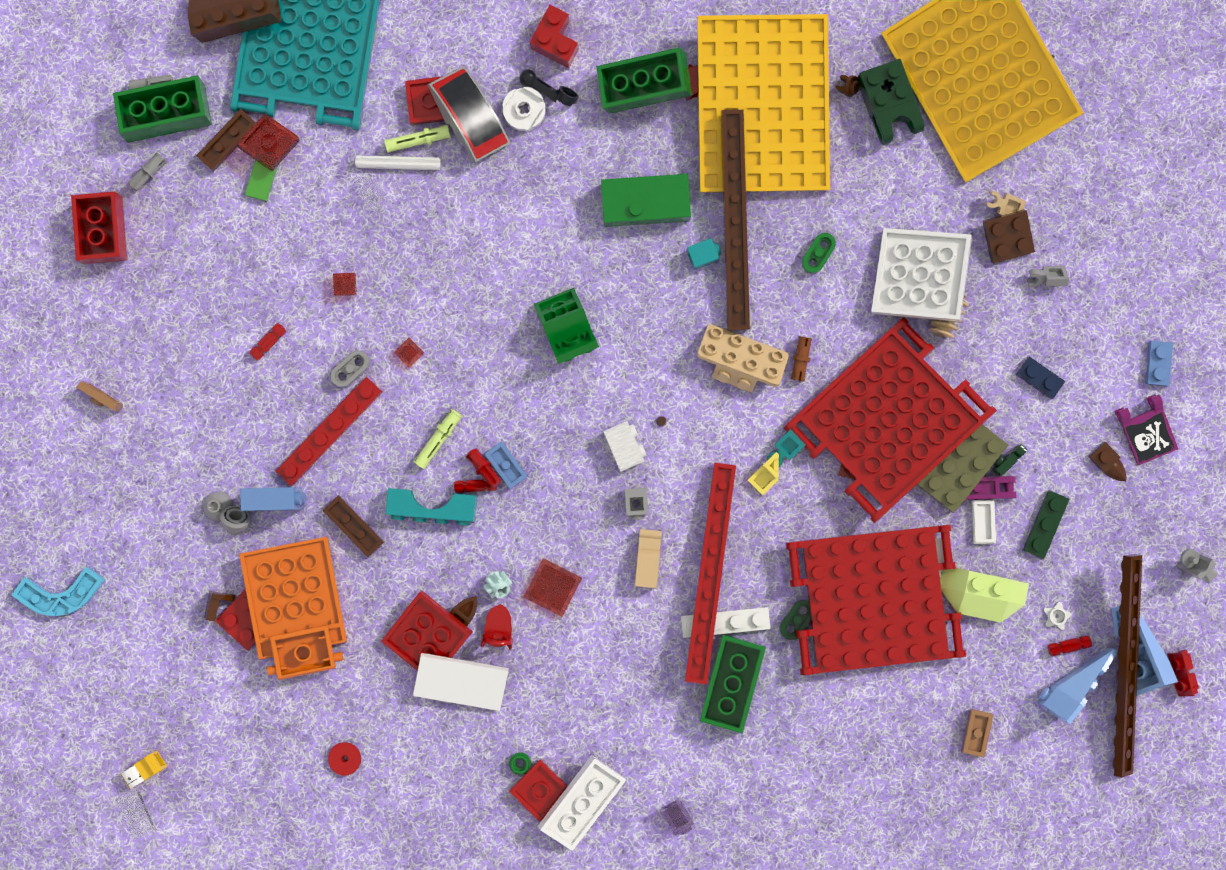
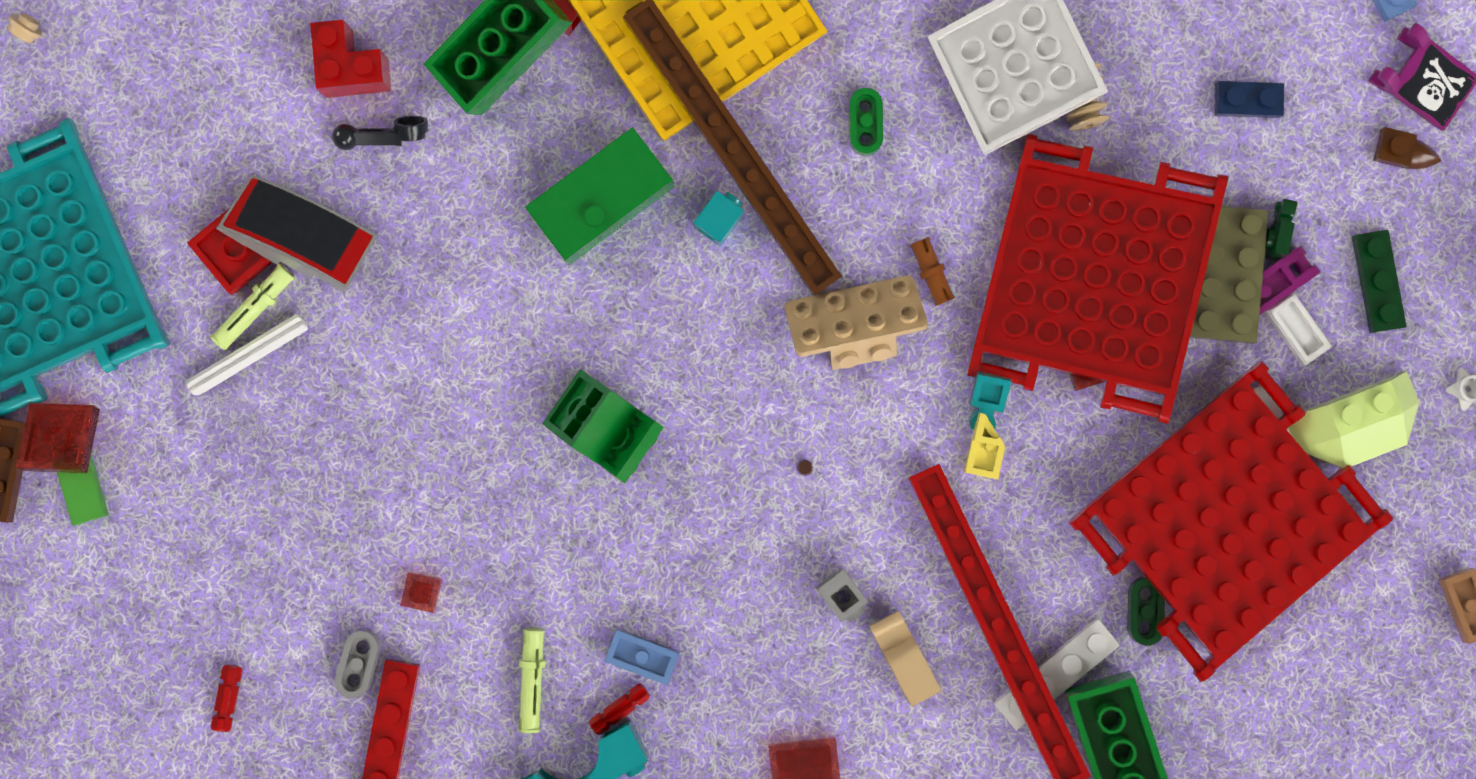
camera: 35 degrees left, 0 degrees up
(344, 284) = (279, 558): clear red plate -> none
(483, 467) = (615, 680): red axle -> none
(525, 121) = (353, 166): white plate -> none
(624, 446) = (779, 532): white brick -> none

